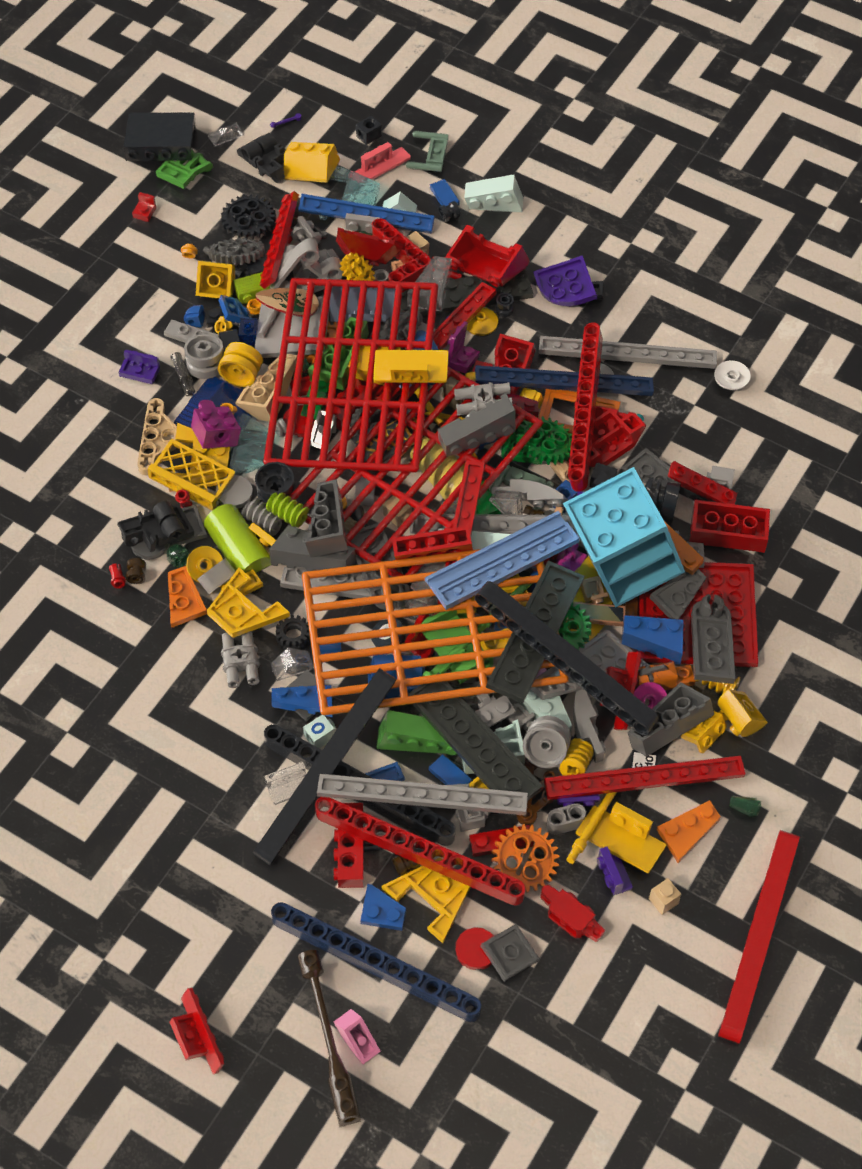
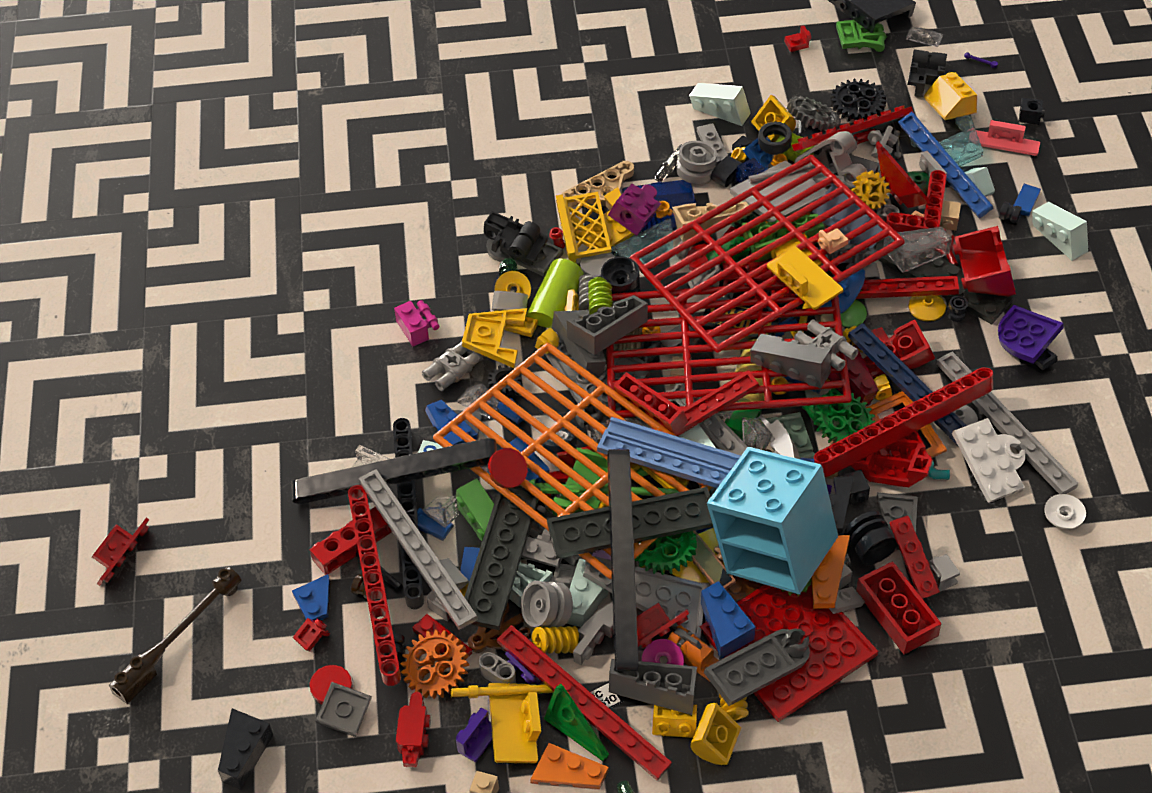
camera: 55 degrees right, 5 degrees down
(118, 579) = (453, 250): red pin -> none
(136, 571) = (470, 254): dark brown wheel -> none
(139, 367) = (649, 135): dark purple bracket -> none
(157, 298) = (721, 101): none -> light aqua wedge
(169, 655) = (412, 323): none -> dark pink brick
(184, 598) = (473, 298): orange wing -> none
(189, 251) = (786, 89): light orange plate -> none
(195, 316) = (730, 133): blue piece -> none
(239, 301) = (775, 147): none -> black tyre
(240, 364) = (709, 185): yellow wheel -> none
(278, 298) = (784, 158): shield -> none
(288, 575) = (547, 336): none -> yellow piece
(357, 1036) = (191, 652): bright pink slope -> none
(379, 970) = (263, 630): dark blue beam -> none
(381, 758) = (442, 510): none -> clear slope
(393, 324) = (832, 241): none -> light nougat bracket
(412, 678) = (507, 468): none -> red tile
(416, 932) = (310, 633): none -> red bracket
(435, 153) = (1061, 165): sand green plate -> none
(436, 889) = (357, 626): yellow wing -> none
(459, 356) = (873, 306): magenta bracket -> none
(485, 1050) = (242, 747): none -> black wedge
(650, 797) = (568, 719): none -> green wing
(654, 382) = (991, 459): none -> white plate
(678, 593) = (787, 611): dark grey wing -> none

